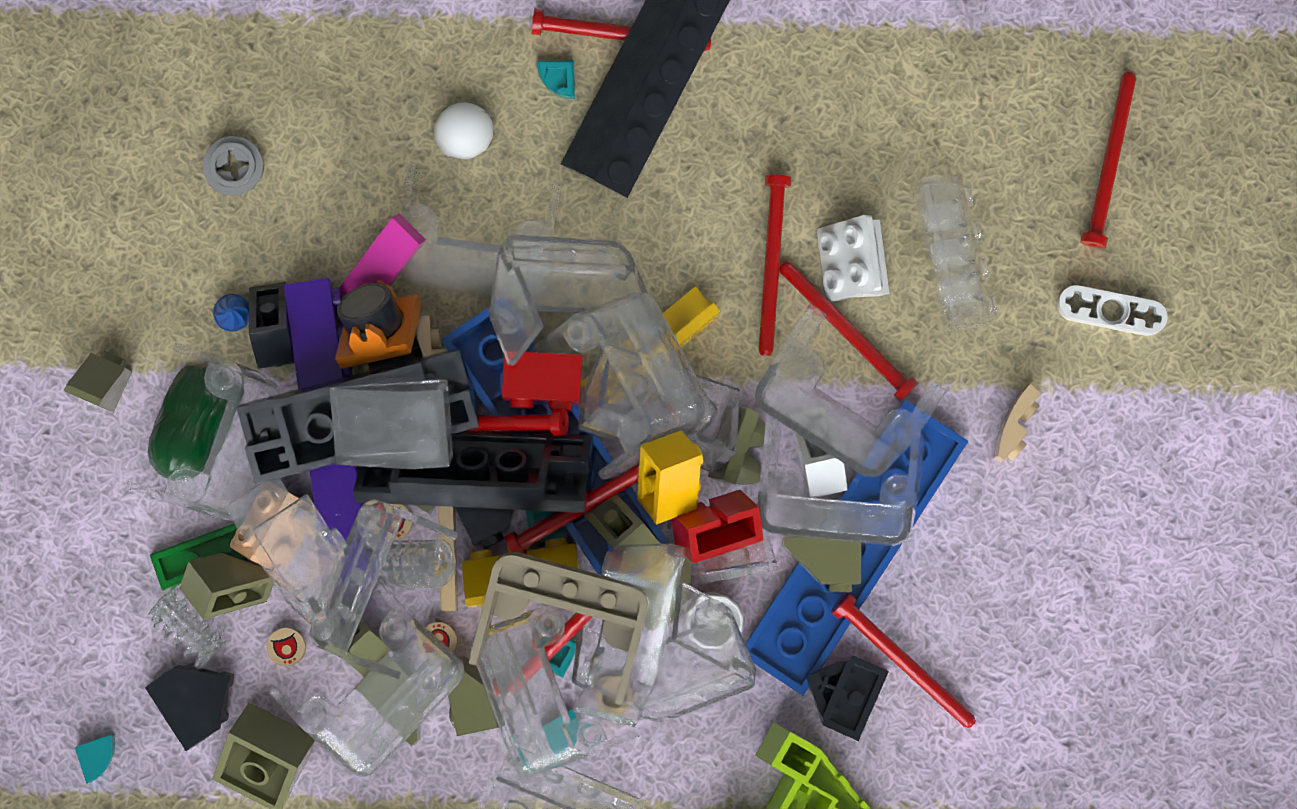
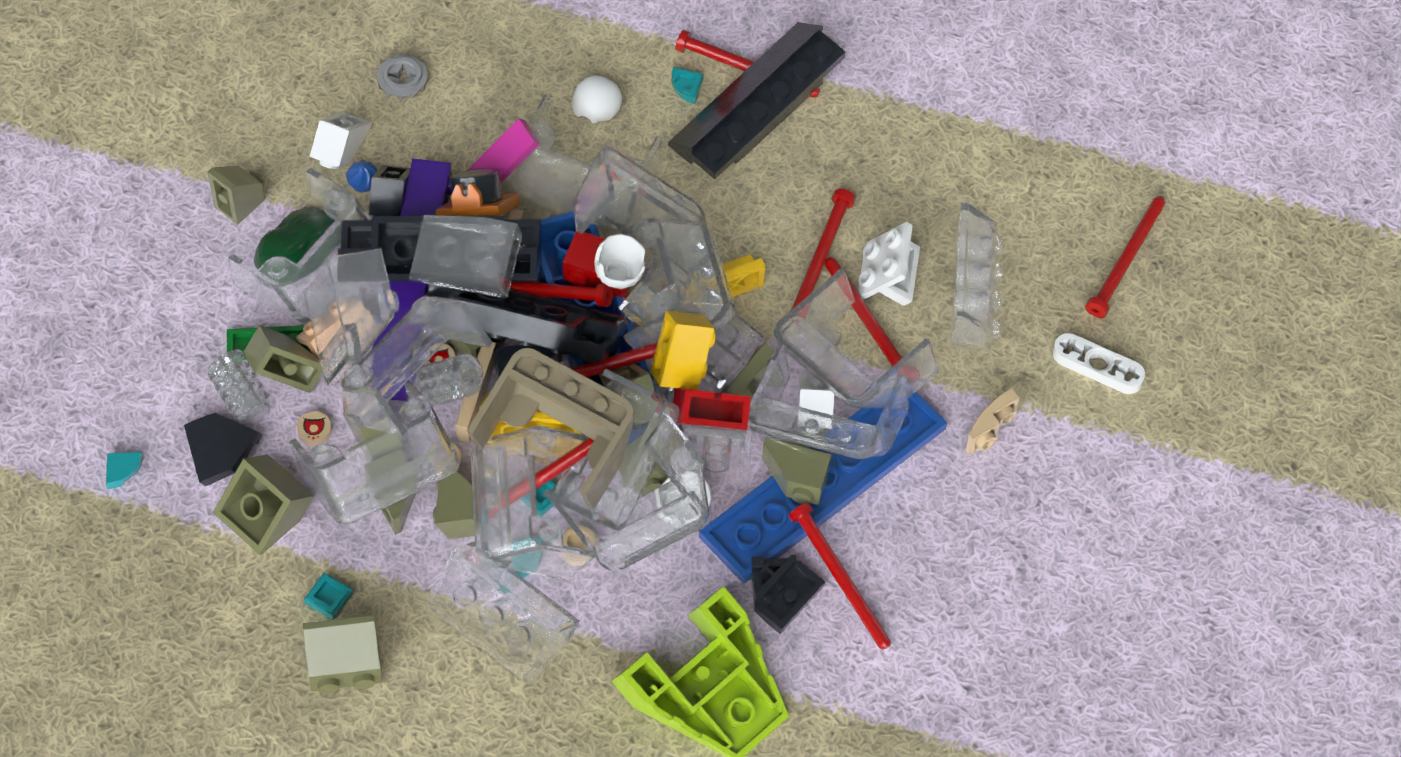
camera: 15 degrees right, 25 degrees down
(191, 273) = (339, 139): none -> white slope
(569, 391) = (620, 261): none -> white hair

